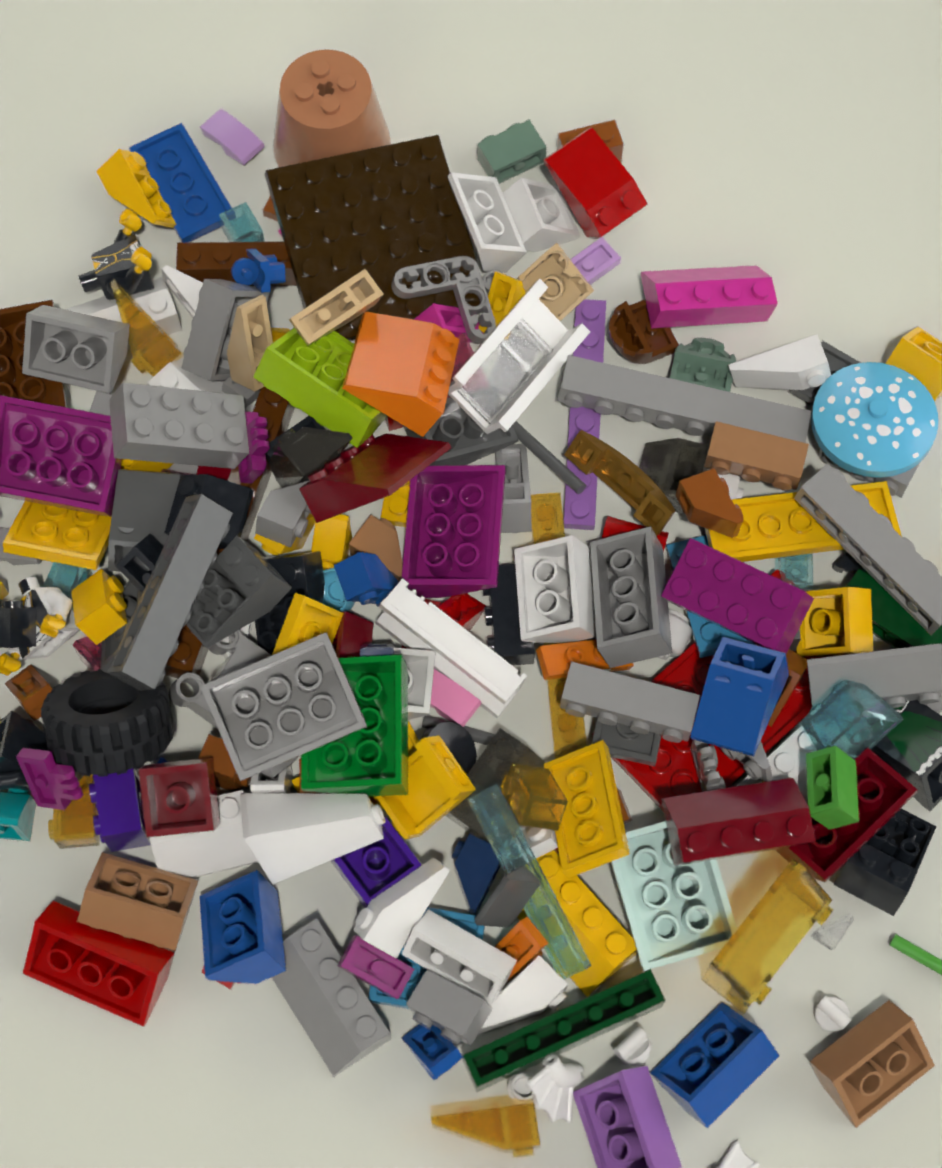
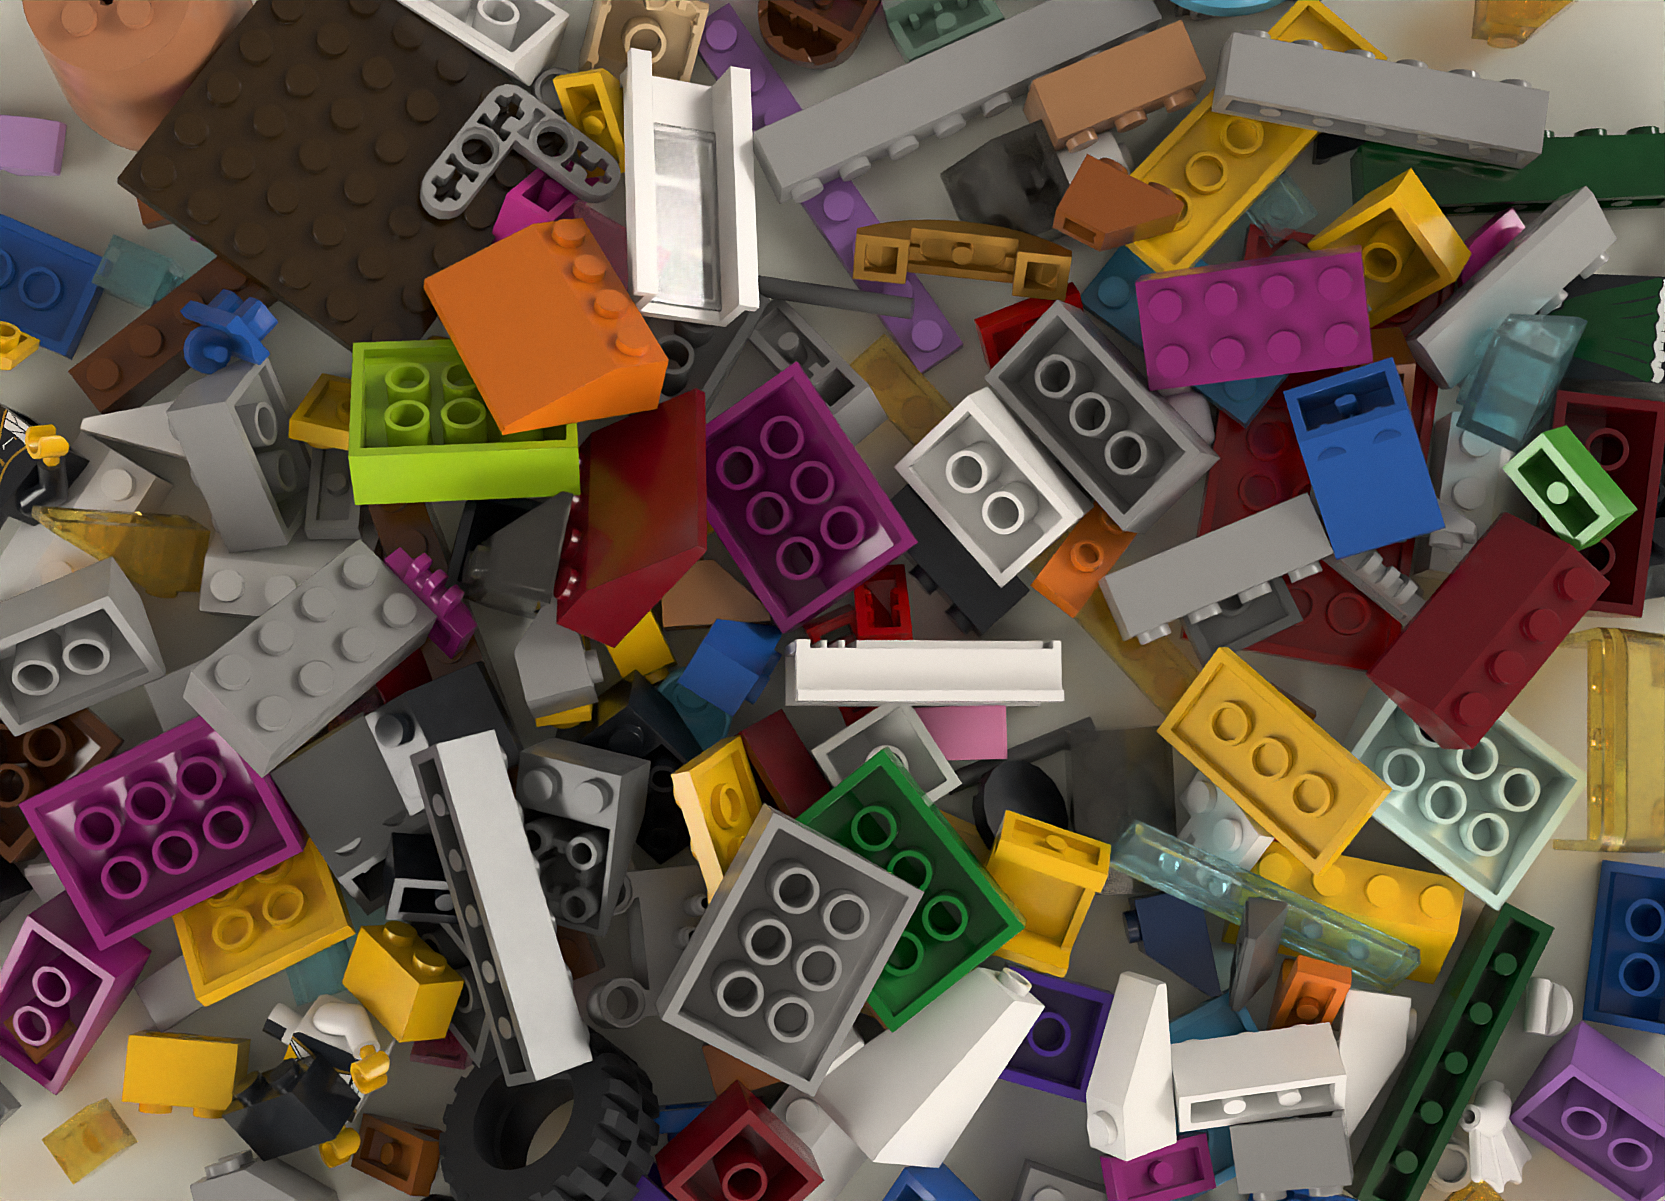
camera: 40 degrees left, 15 degrees up
(248, 342) = (307, 454): tan slope -> none
(337, 307) = (388, 312): tan slope -> none
(376, 650) = (834, 760): dark blue tile -> none
(534, 796) = (1195, 796): clear yellow brick -> none

